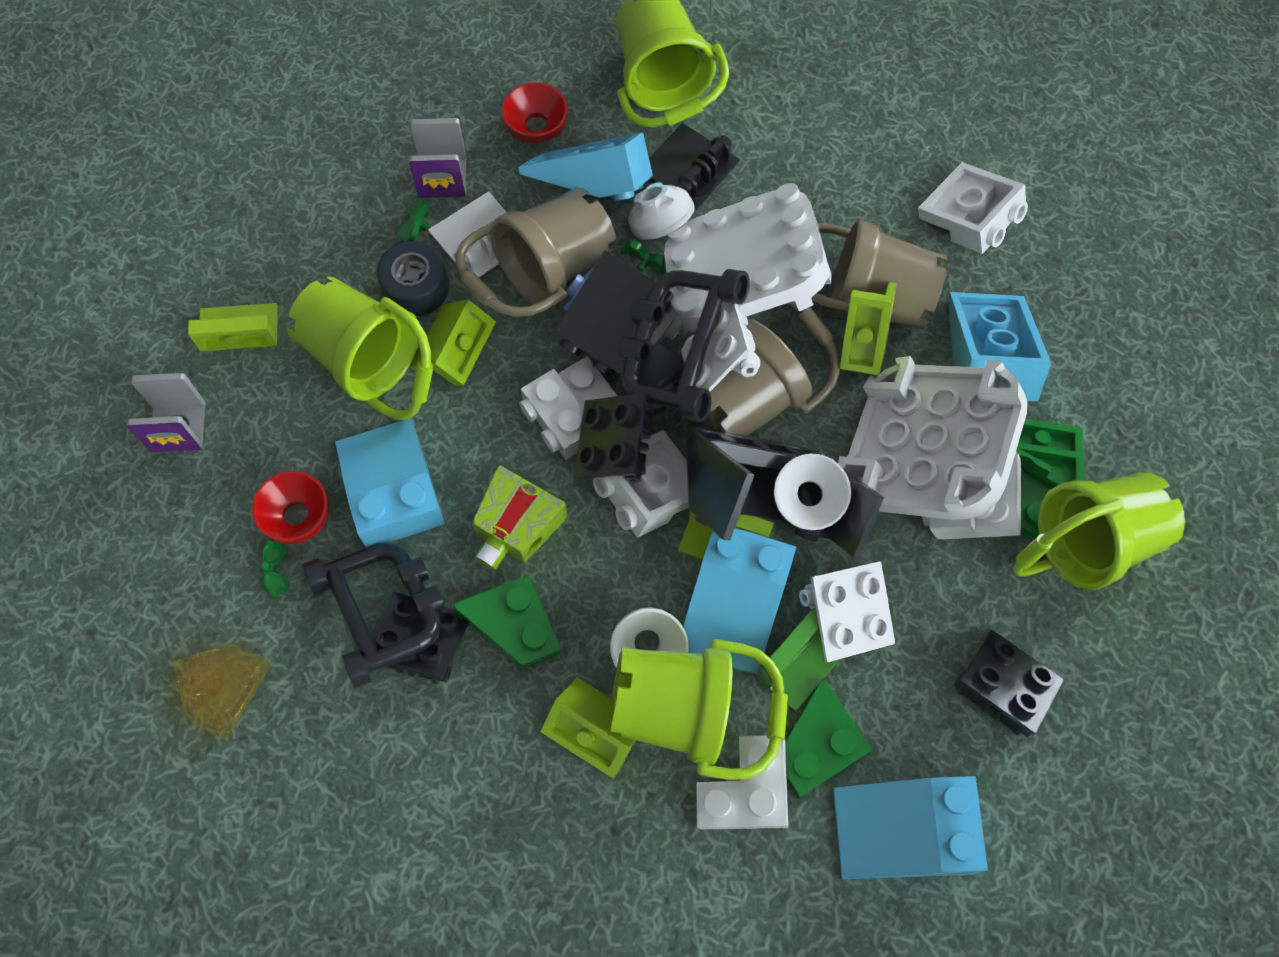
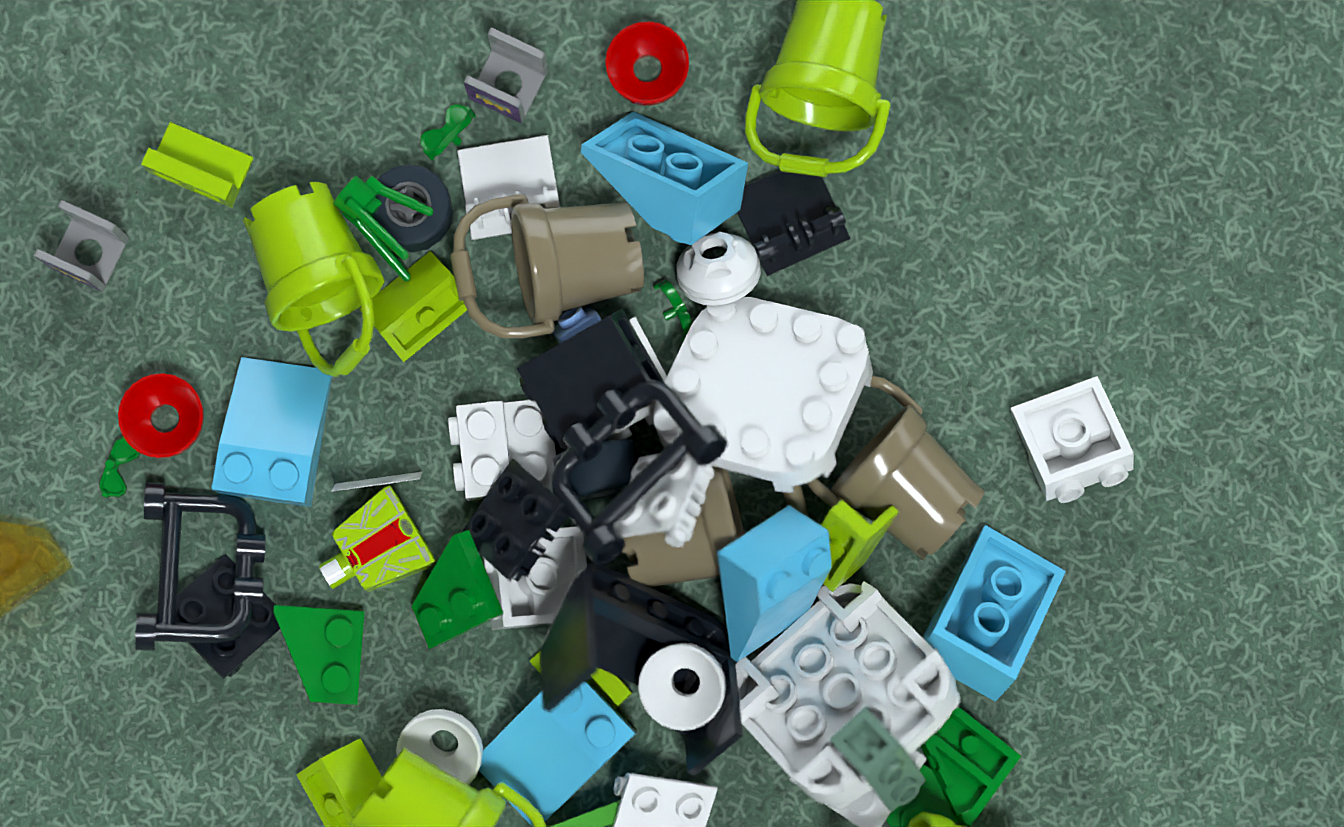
camera: 30 degrees right, 15 degrees up
(375, 277) = (360, 204): none -> green plant
(488, 473) = (377, 481): none -> white sticker
(595, 521) = (456, 594): none -> green wing
(834, 375) = (772, 578): none -> medium azure slope
(998, 449) = (879, 759): none -> sand green bracket

